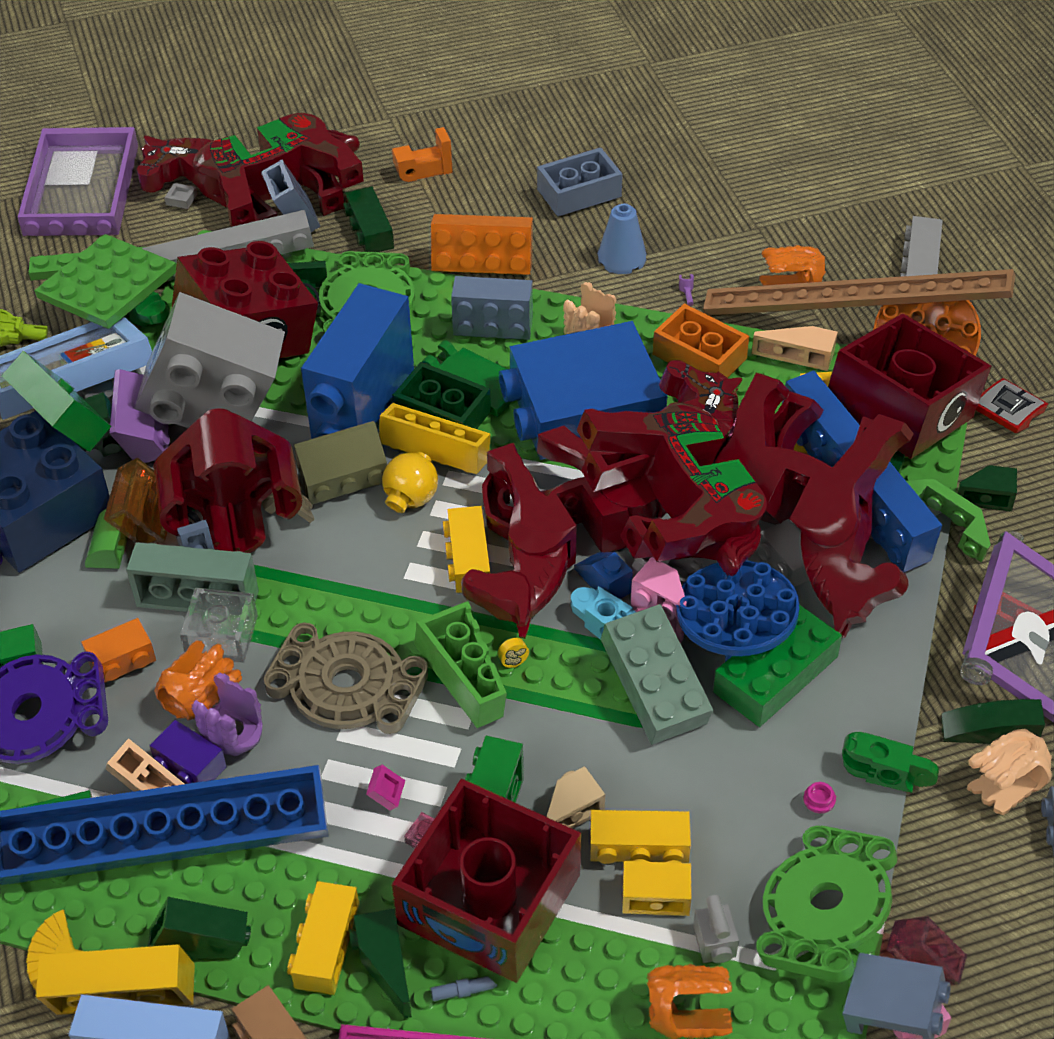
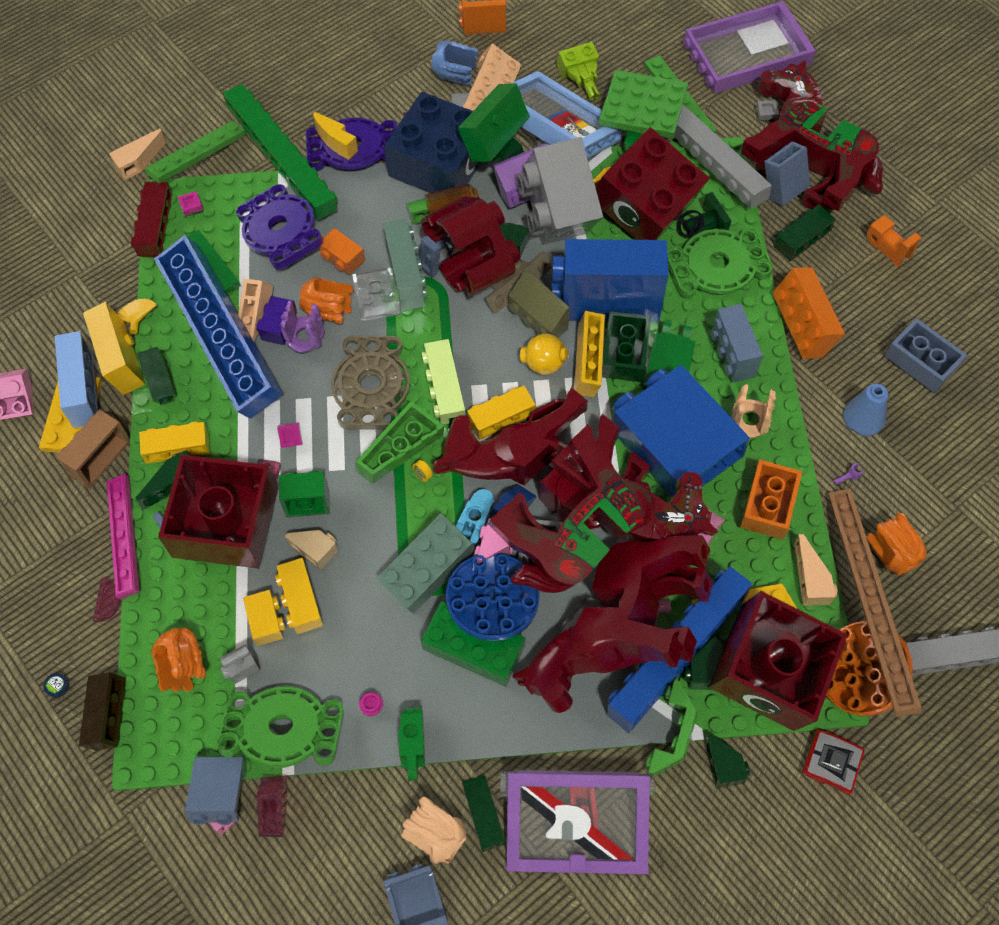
camera: 70 degrees right, 15 degrees up
(390, 592) = (444, 380): none -> yellowish green brick

